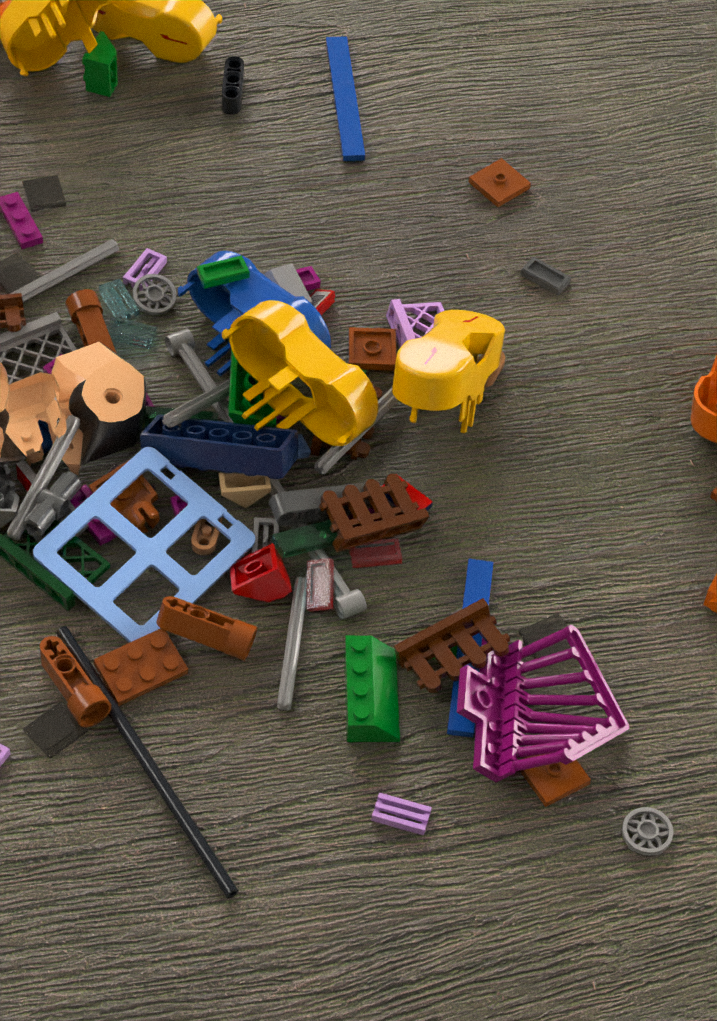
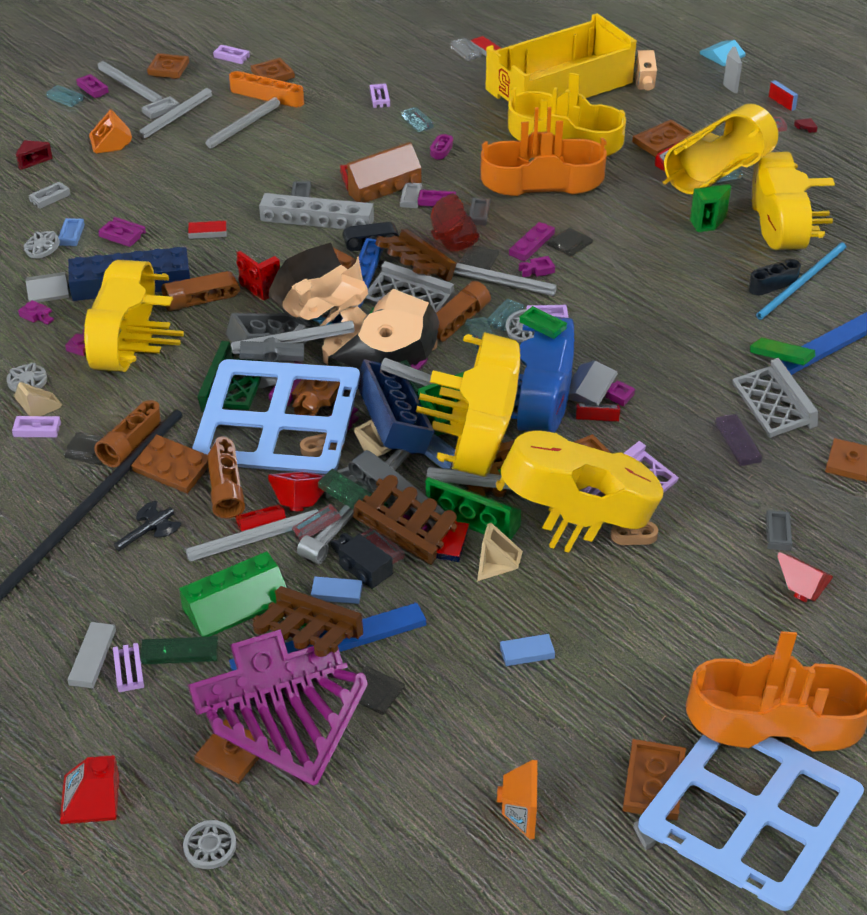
camera: 65 degrees right, 10 degrees down
(69, 235) = (540, 266): none -> magenta plate
(216, 714) = (154, 520): none -> black piece
(248, 74) = (800, 281): none -> dark azure piece
(272, 627) = (260, 517): none -> red slope
(340, 141) = (782, 350): none -> green tile
(366, 837) = (91, 655): none -> light grey tile
(388, 572) = (363, 559): none -> black brick
(391, 456) = (474, 508): none -> green slope
(396, 169) = (790, 393): none -> light grey fence
(406, 763) = (179, 650): none -> clear green tile
(409, 611) = (337, 590): none -> medium blue tile
(420, 237) = (738, 440): none -> clear purple tile
(448, 475) = (497, 554): none -> tan slope
(540, 898) = (91, 791): none -> red slope
(570, 511) = (527, 650): none -> medium blue tile
(615, 290) = (803, 578): none -> slope

